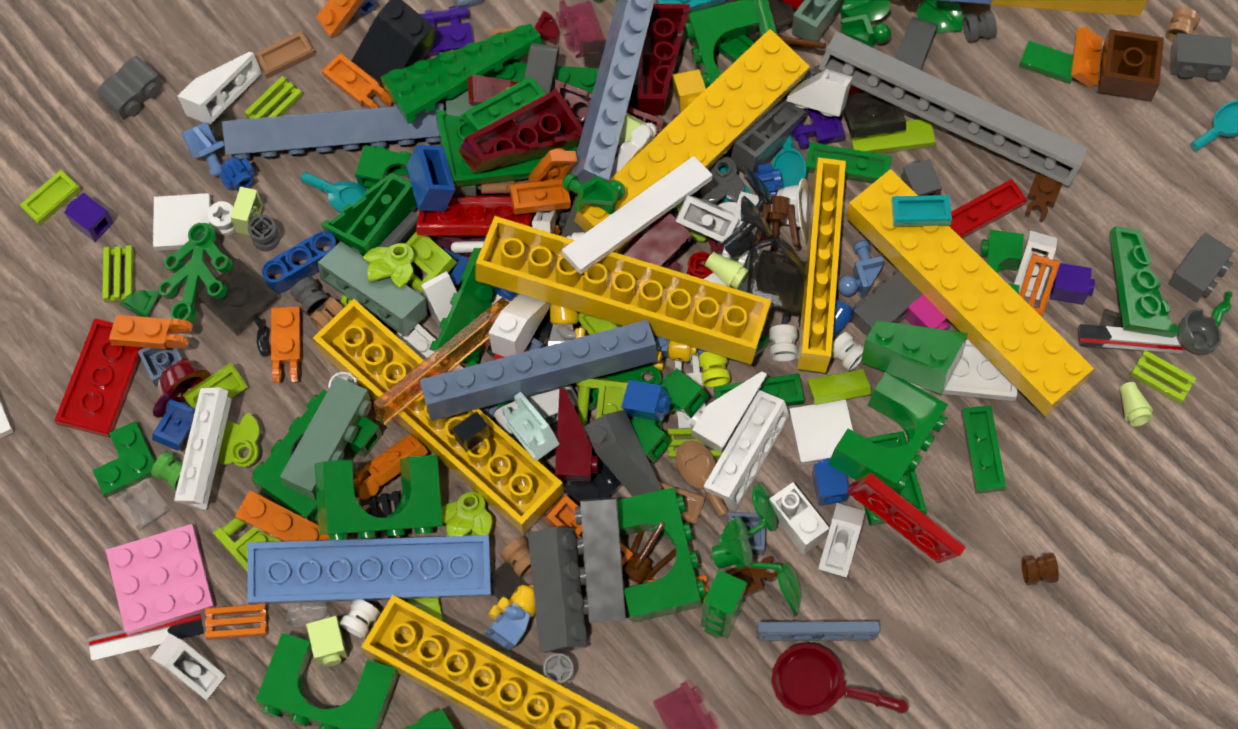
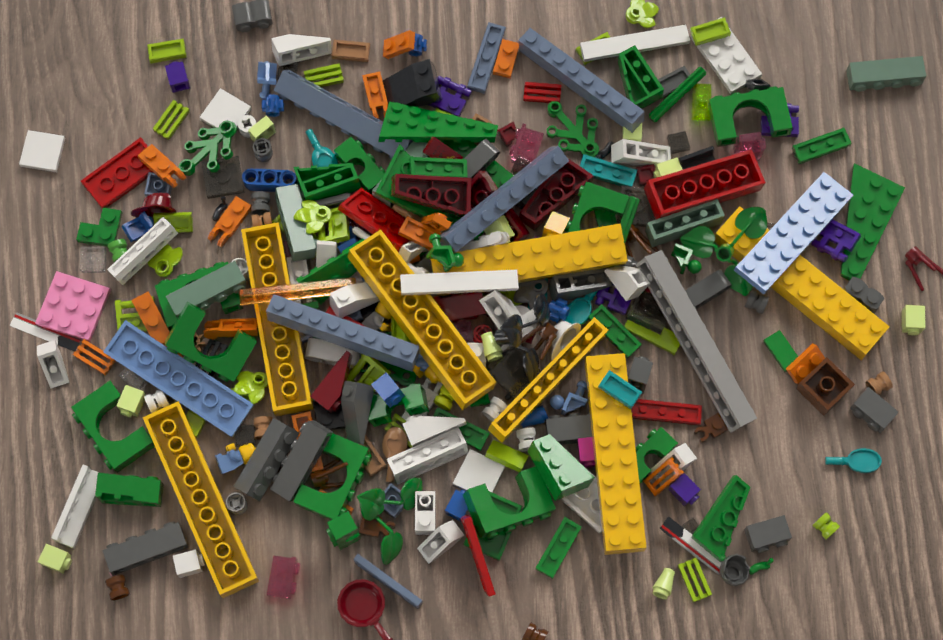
camera: 35 degrees right, 5 degrees up
(140, 302) = (170, 144): green tile -> none
(430, 178) = (367, 182): blue piece -> none
(471, 431) = (282, 341): black piece -> none
(530, 428) = (316, 361): light aqua hinge -> none

